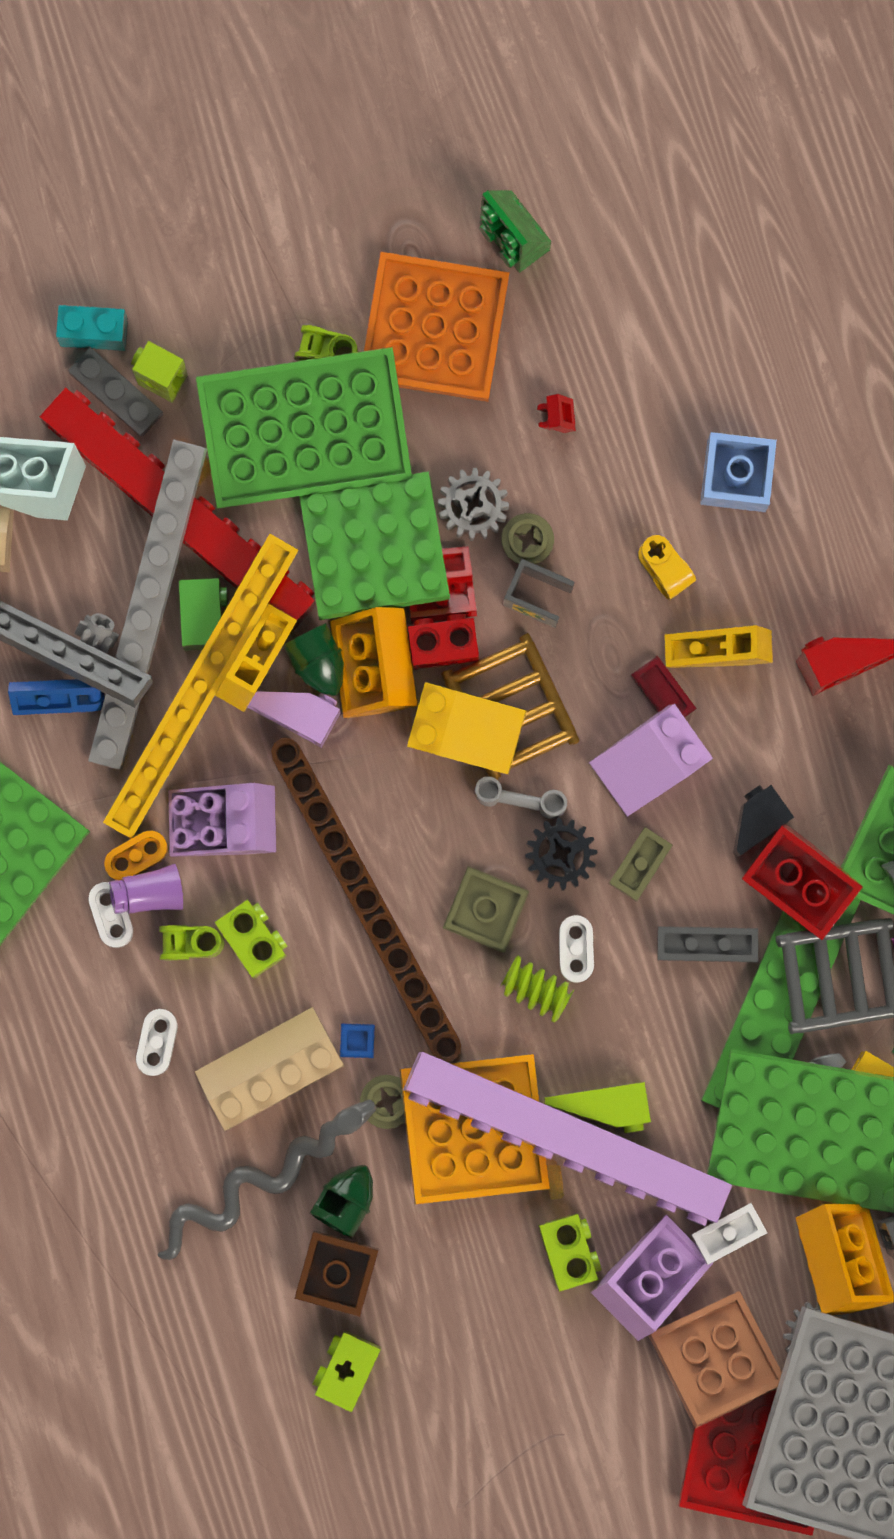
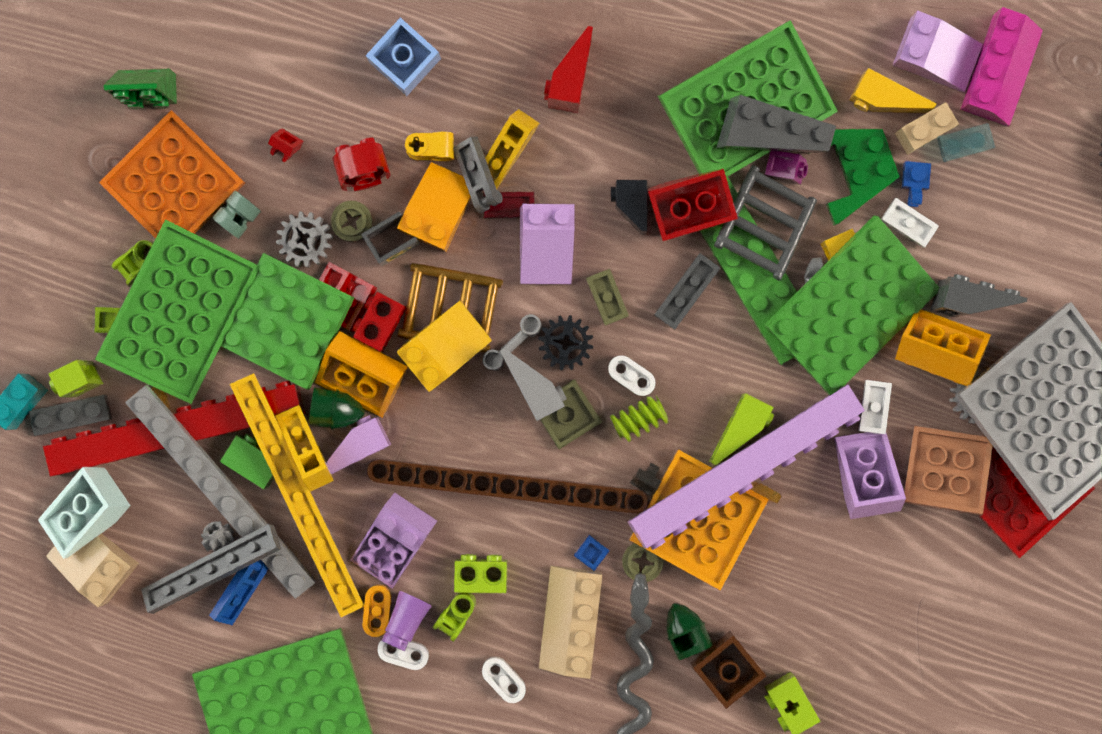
camera: 45 degrees left, 5 degrees up
(242, 357) = (104, 318): none -> lime tile
(461, 416) = (246, 213): none -> sand green wheel
(476, 1043) = (646, 479): none -> clear smoke tile
(490, 858) = (537, 390): none -> light grey slope
(561, 1254) = (814, 519): lime brick -> none
(593, 507) = (361, 165): none -> red brick
(607, 618) = (436, 207): none -> light orange slope
(670, 635) = (477, 174): none -> dark grey plate

